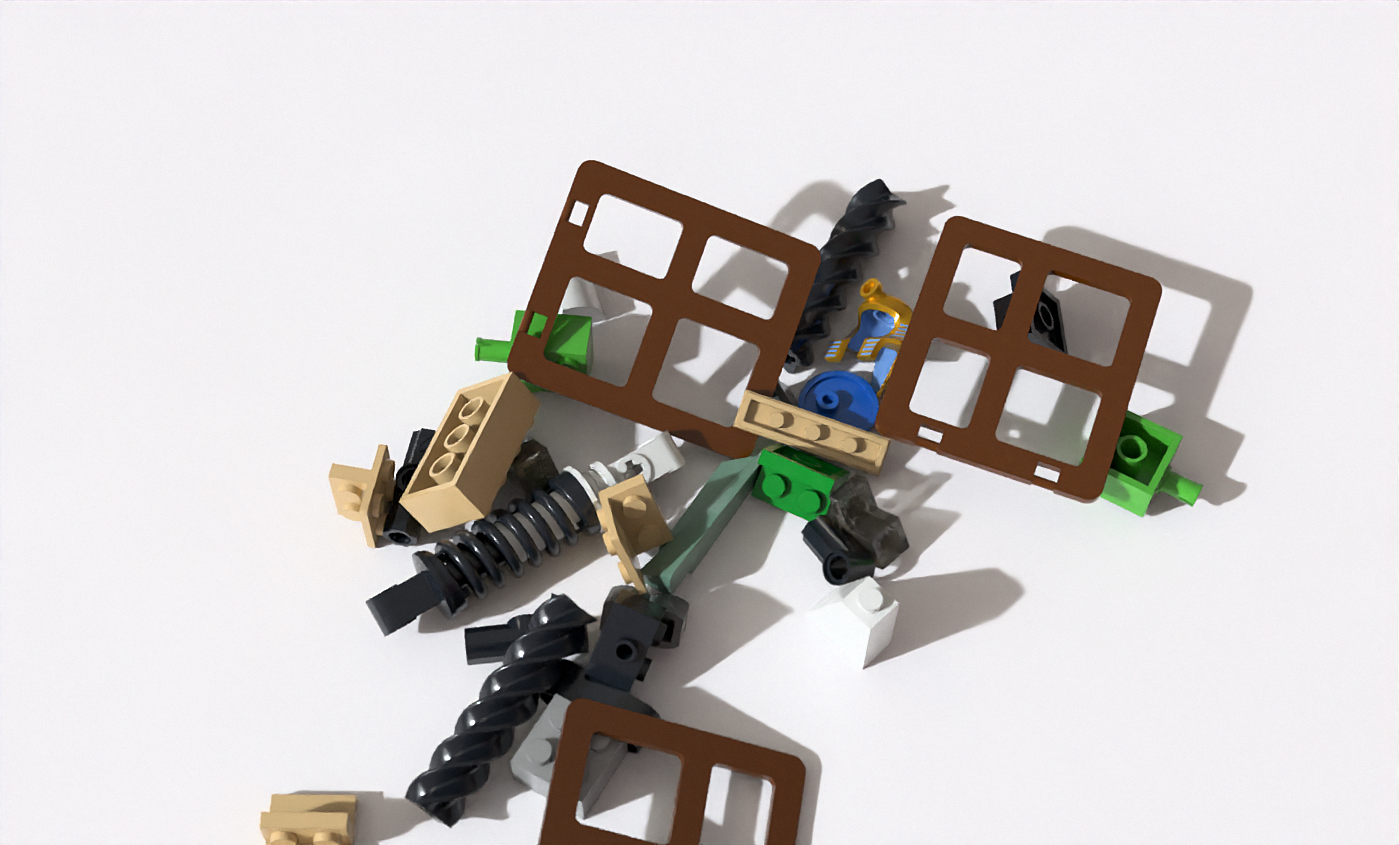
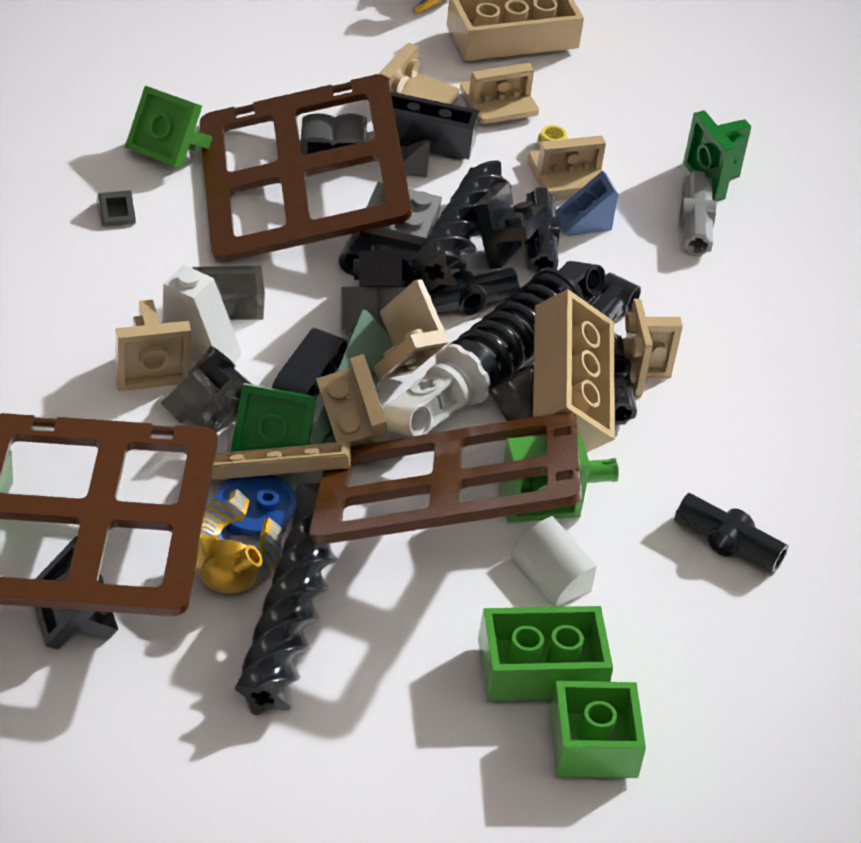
camera: 160 degrees right, 15 degrees down
(113, 789) = (716, 150): none -> green bracket
(186, 720) = (697, 214): none -> light grey piece
(323, 747) = (590, 208): none -> medium blue slope
(348, 599) = (616, 296): none -> black piece
(388, 286) = (731, 532): none -> black piece
(395, 725) = (544, 241): none -> black piece
(444, 686) = (506, 224): none -> black bracket
(608, 114) = (597, 729): none -> bright green brick
(650, 164) = (536, 646): none -> bright green brick
(713, 463) = (353, 404): none -> tan bracket
(740, 560) = (314, 357): none -> black beam
(805, 687) = (239, 289): none -> clear smoke brick
(916, 584) = (151, 352): none -> tan bracket

